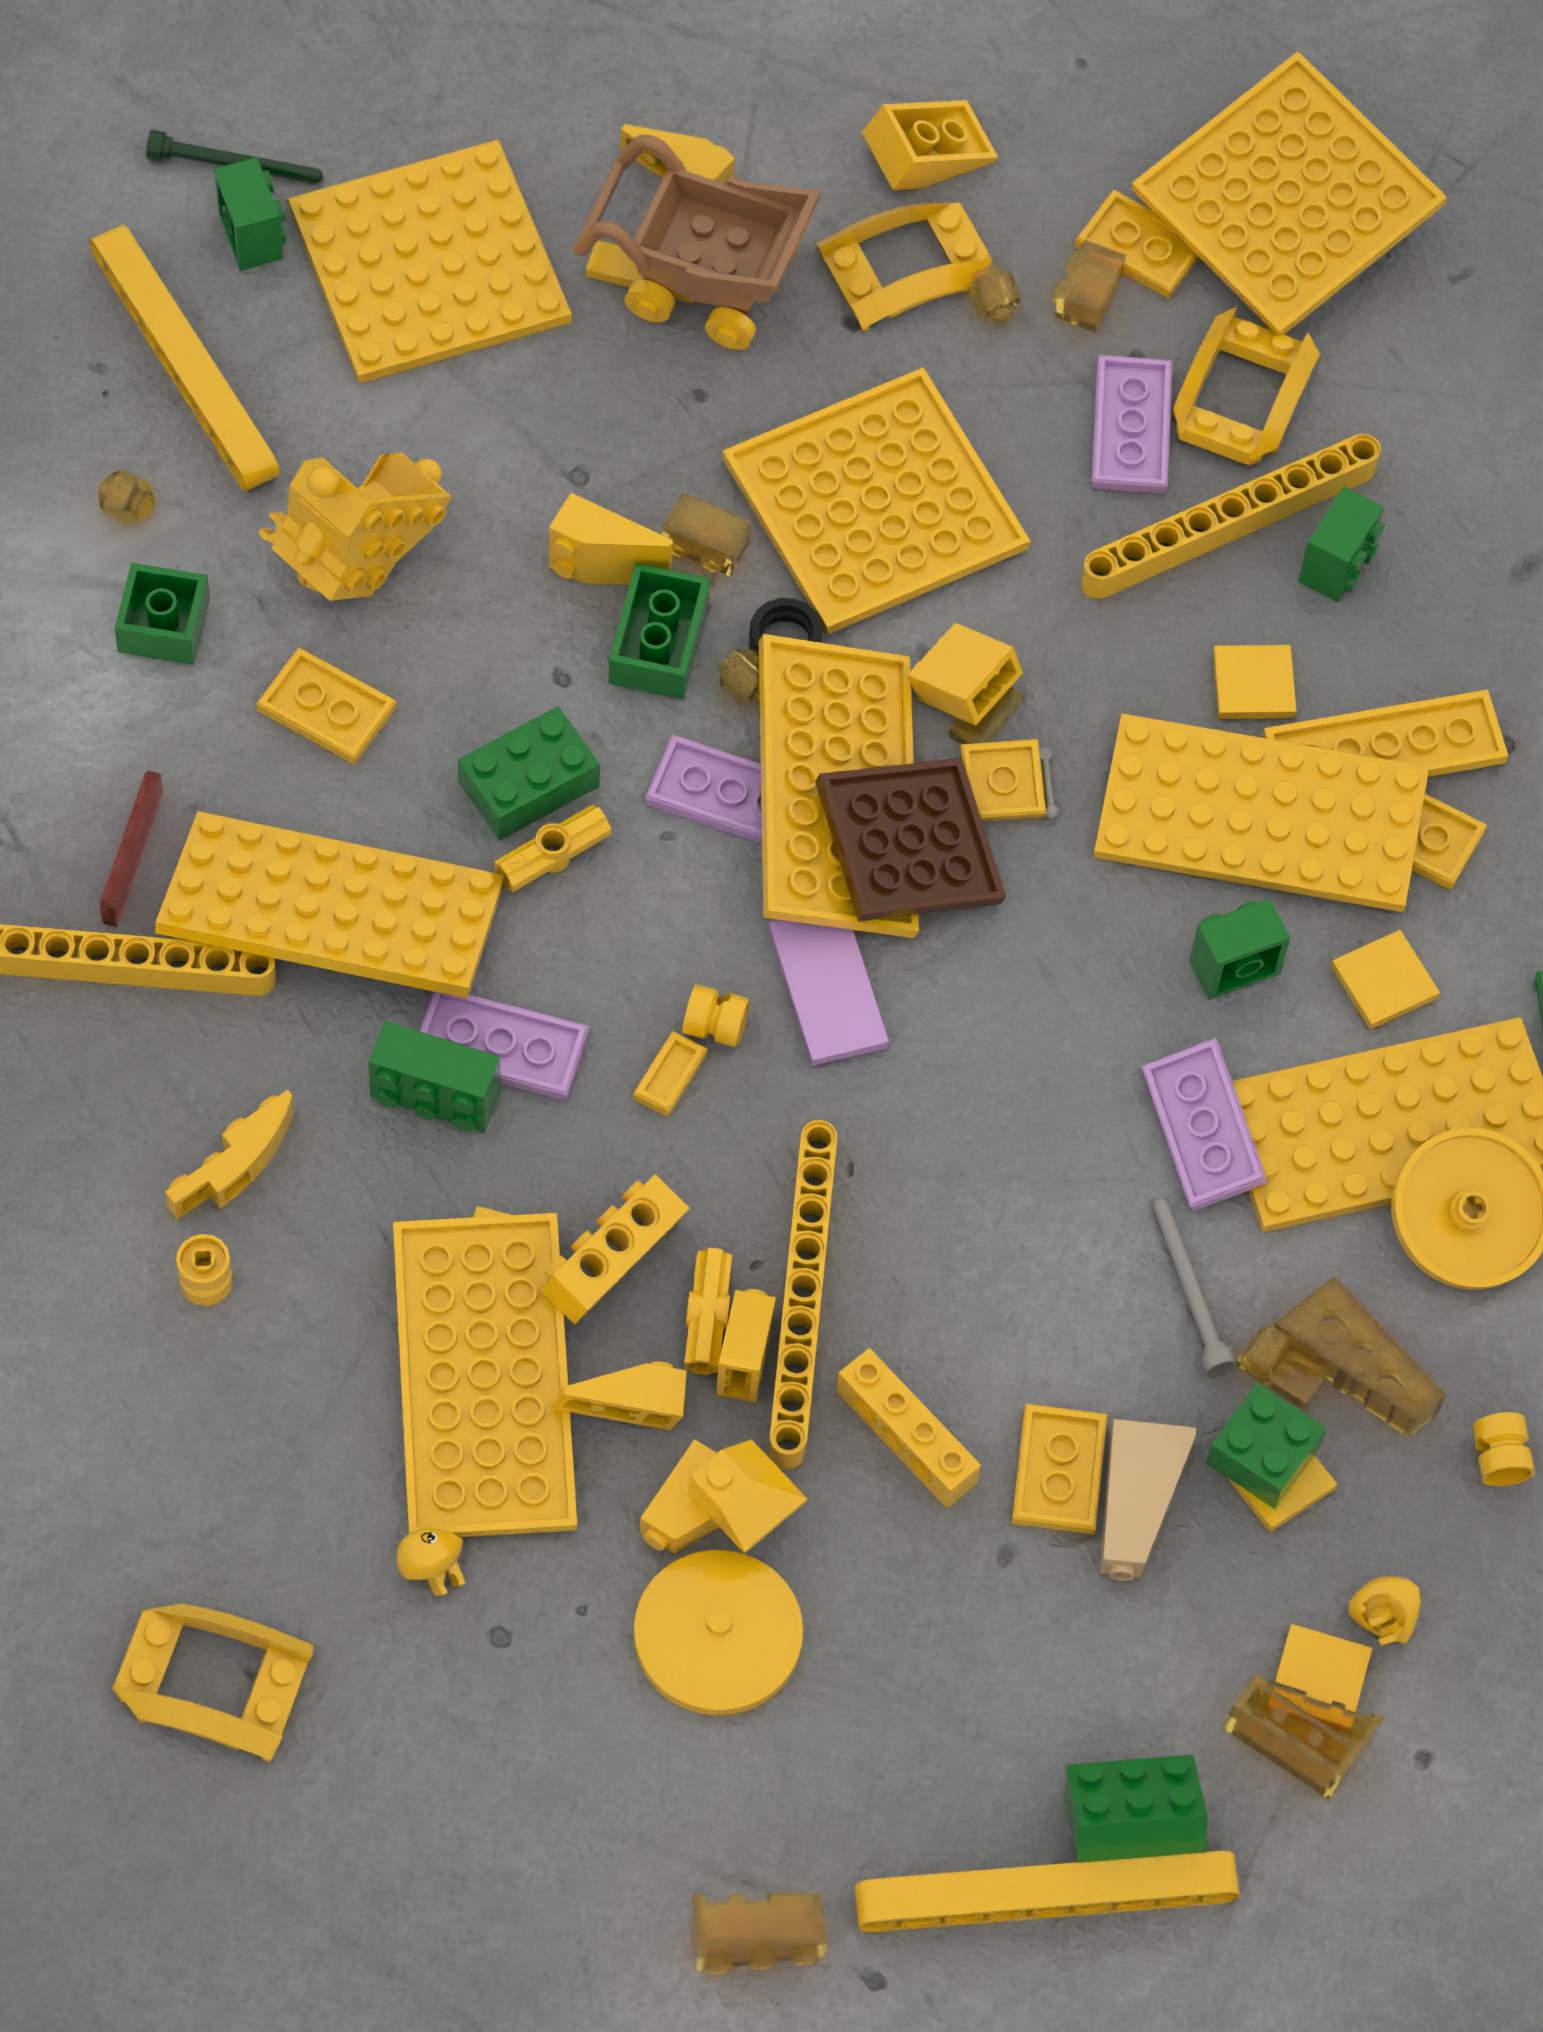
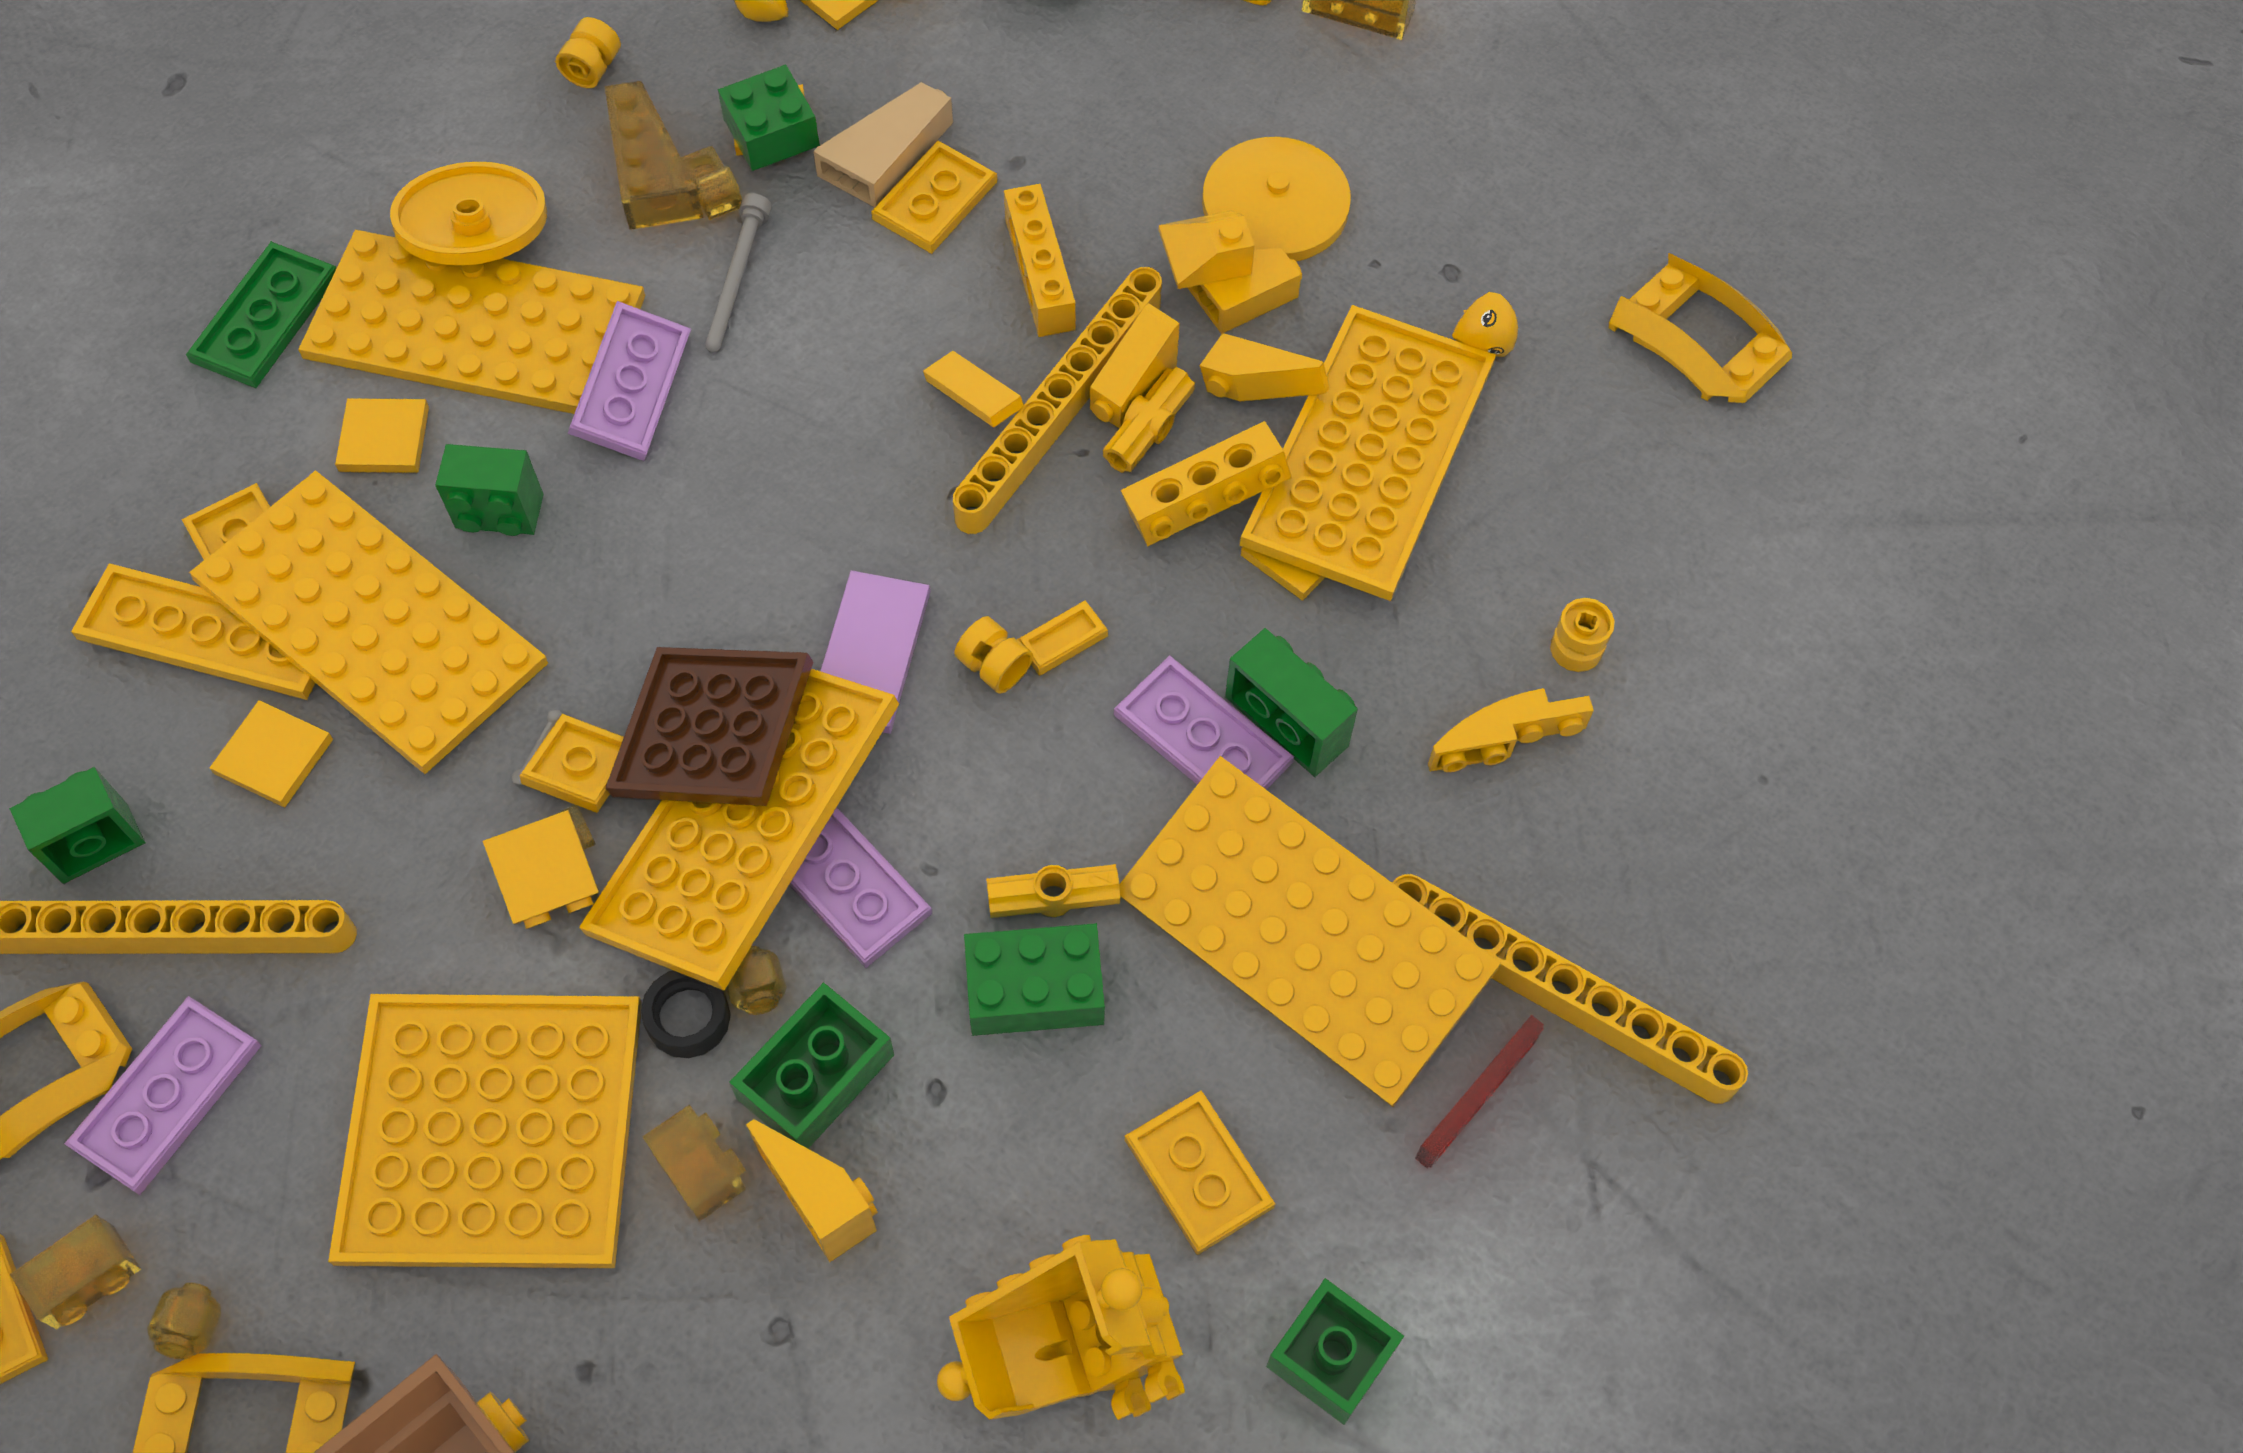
camera: 150 degrees left, 0 degrees up
(886, 1255) = (973, 388): none -> yellow tile

